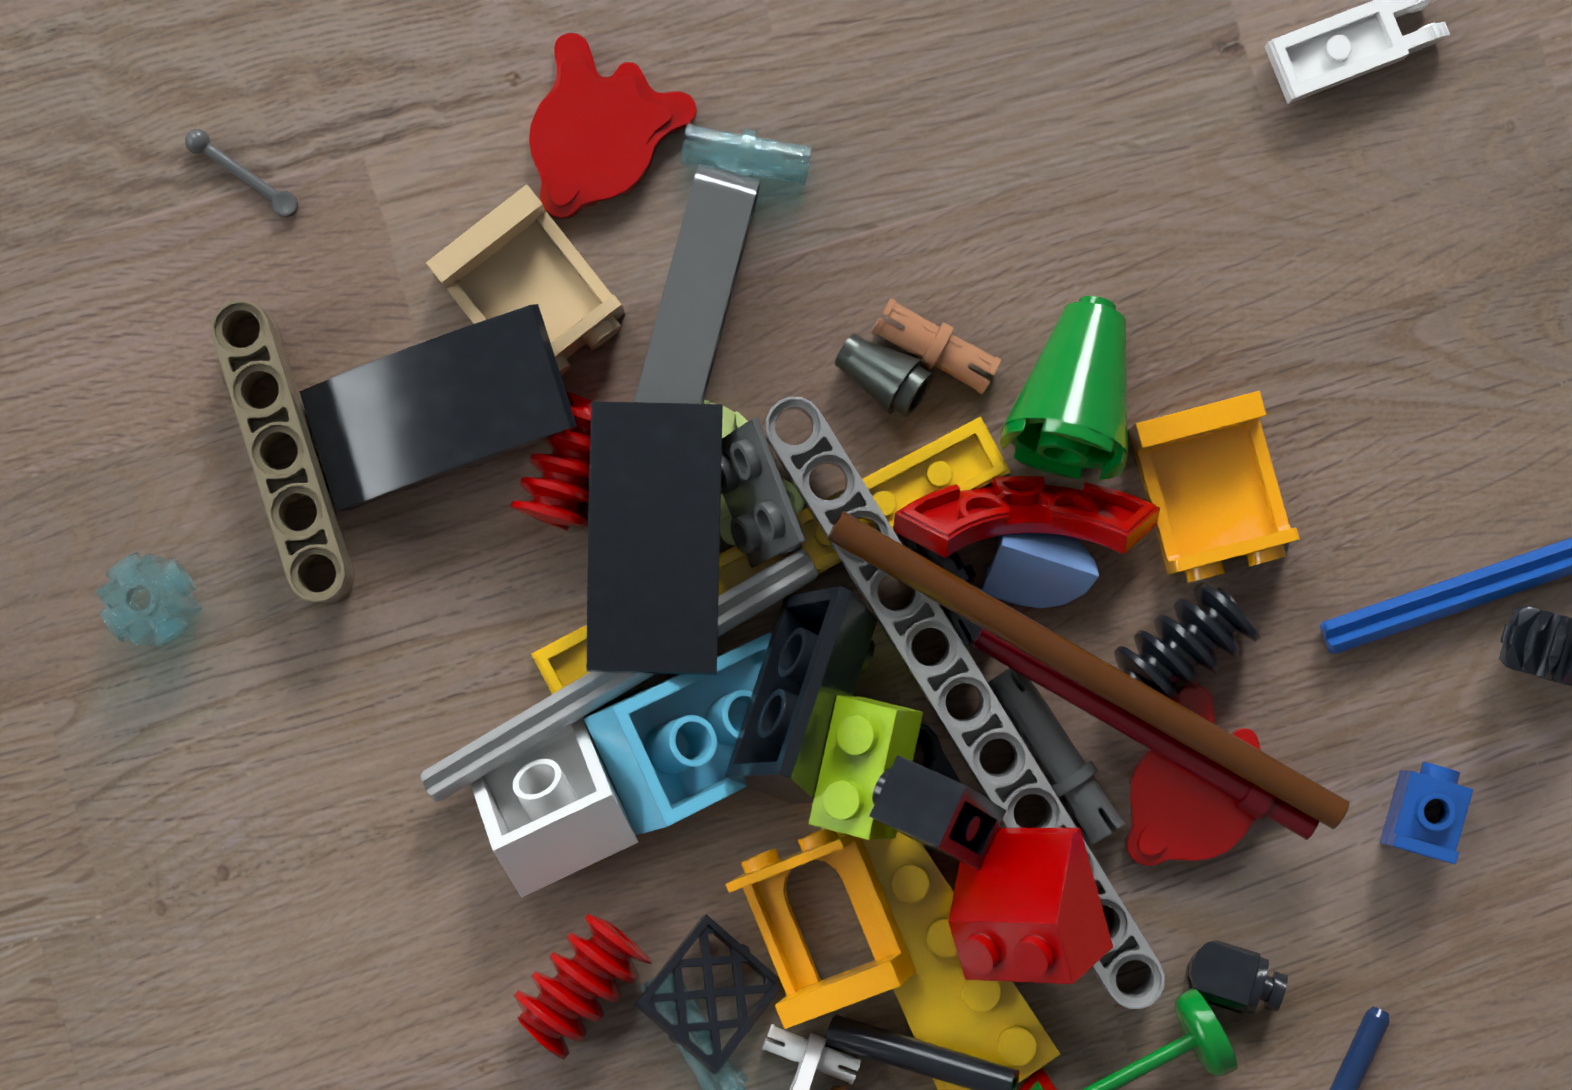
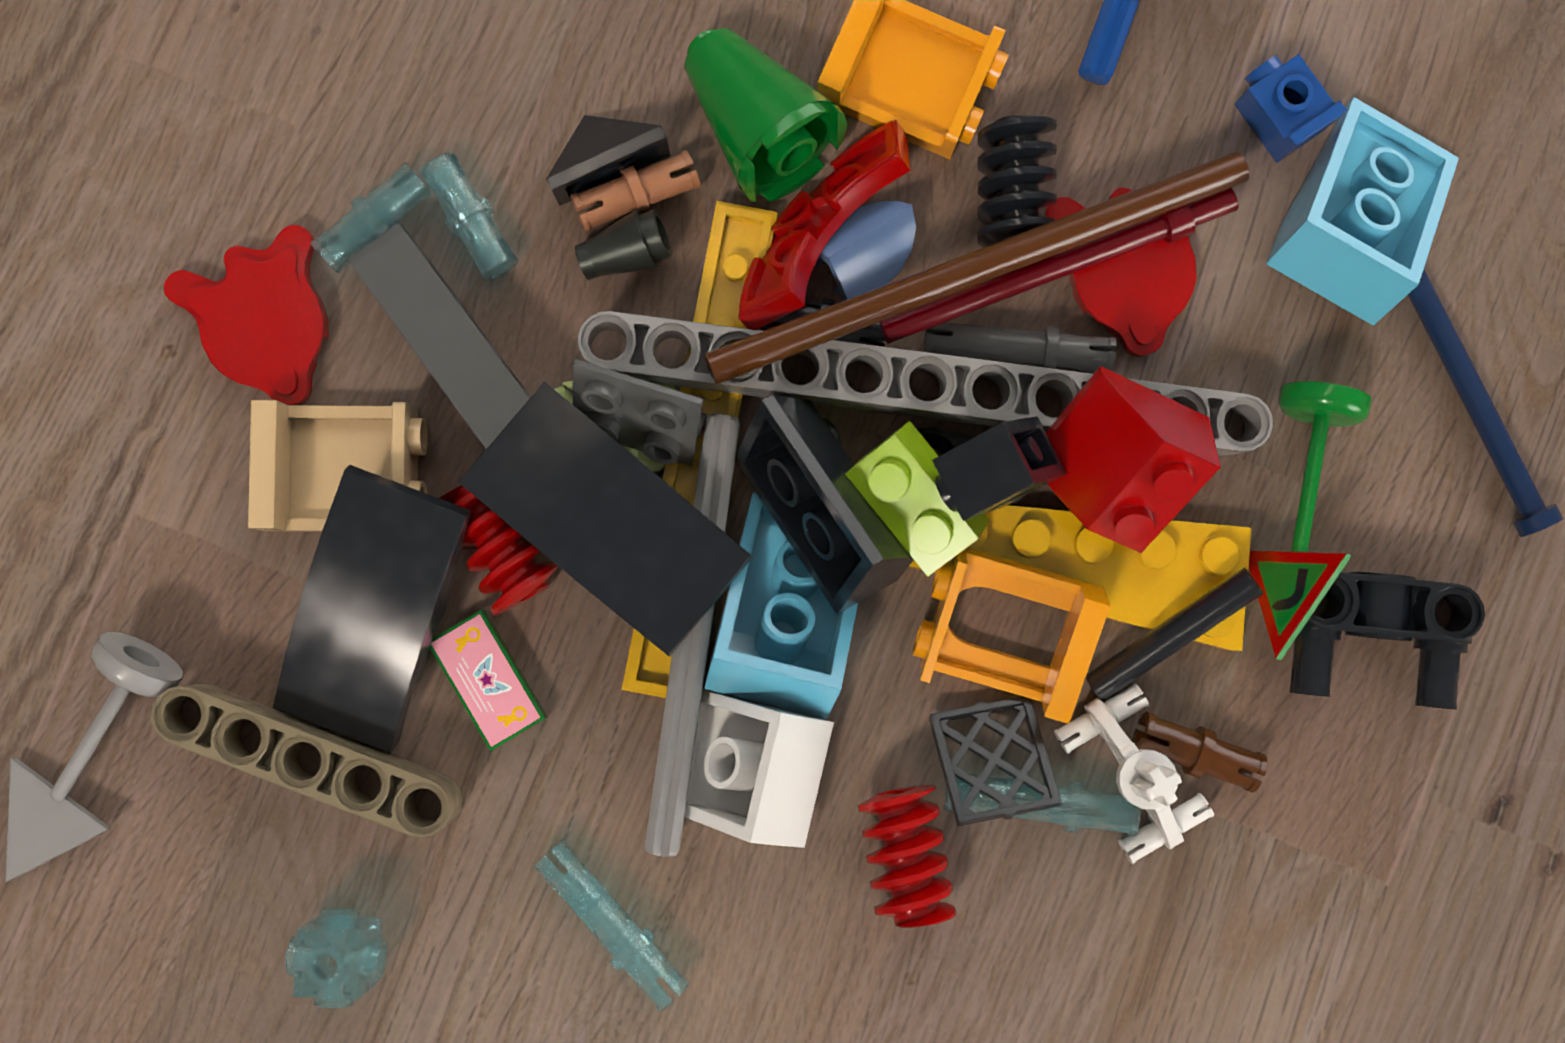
camera: 50 degrees left, 0 degrees up
(73, 278) = (42, 815): none -> light grey piece
(283, 202) = (117, 604): dark grey hinge -> none
(340, 795) = (612, 926): none -> clear light blue pin
(454, 541) = (487, 680): none -> bright pink tile
(810, 230) = (469, 216): none -> clear light blue pin
(946, 293) = (600, 152): none -> black slope
(1235, 978) = (1298, 349): black arm -> none
(1391, 945) = (1365, 214): none -> medium azure slope

